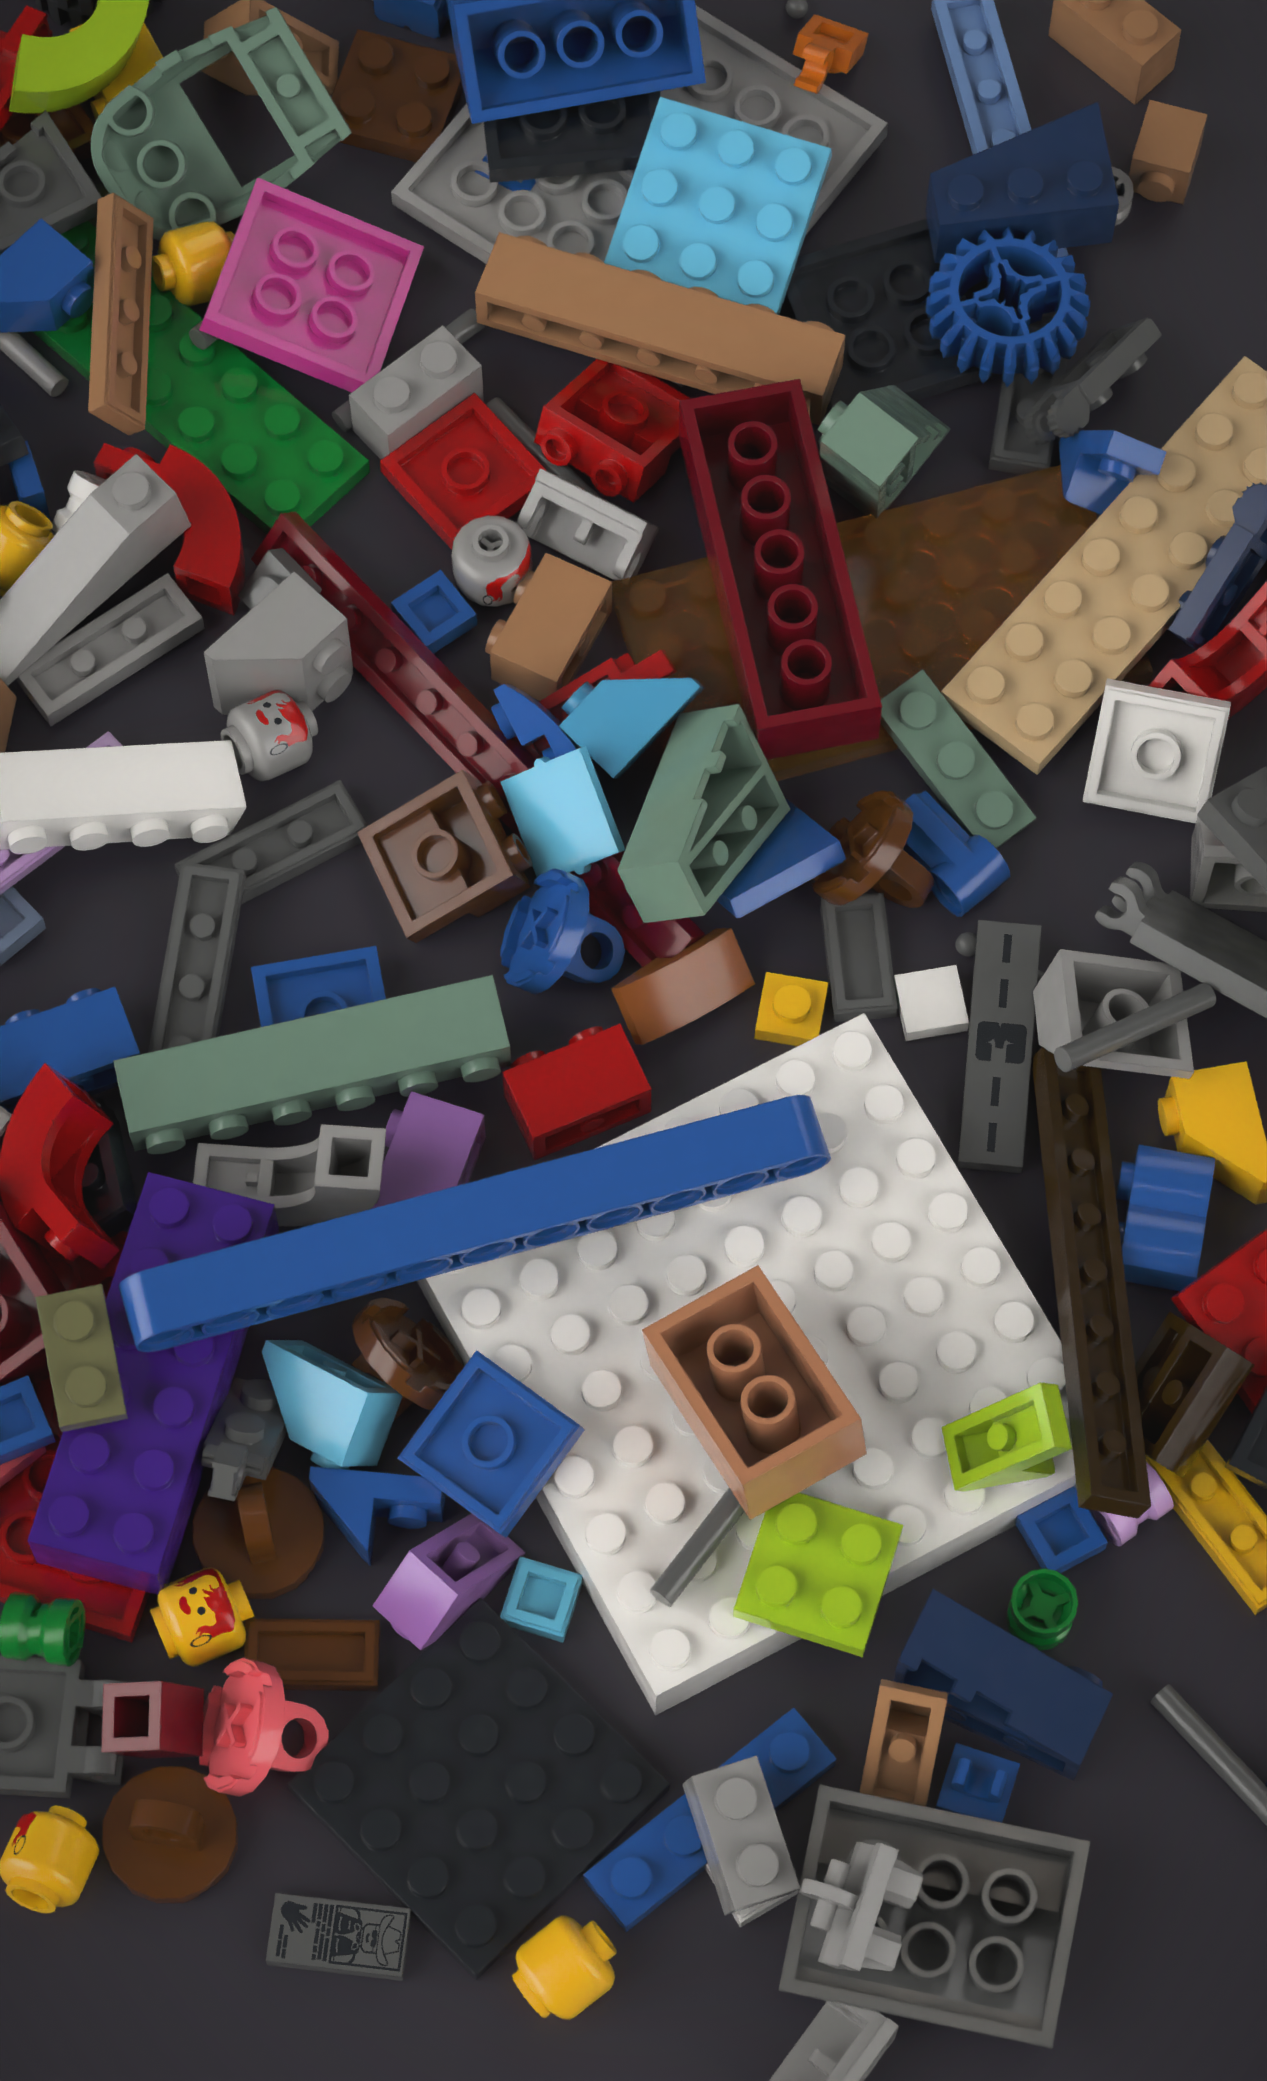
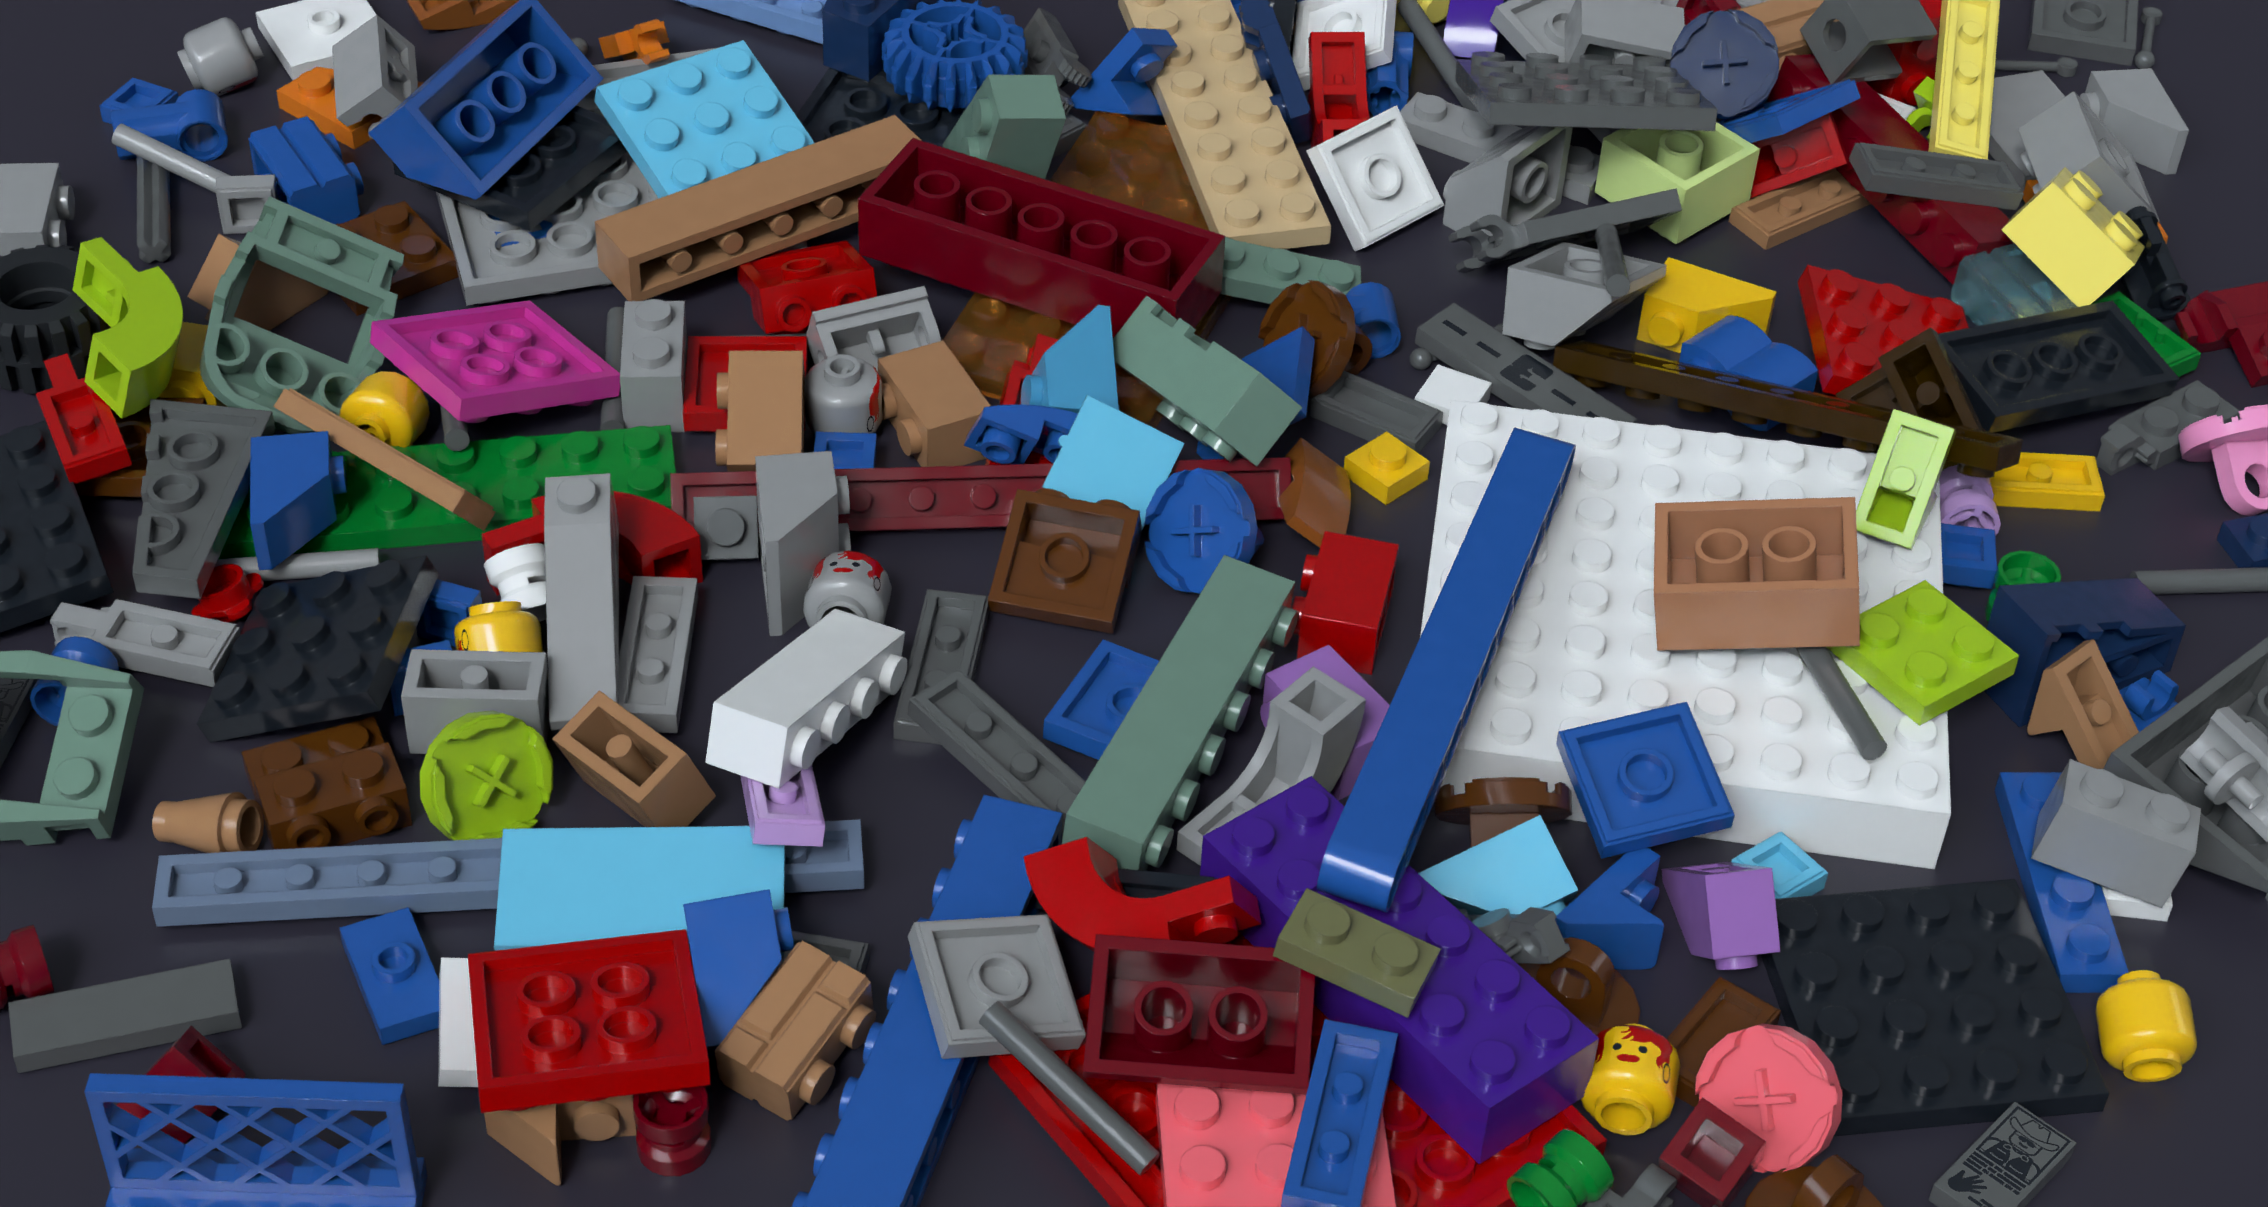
camera: 55 degrees left, 25 degrees down
(405, 527) = (763, 407): none -> medium nougat brick

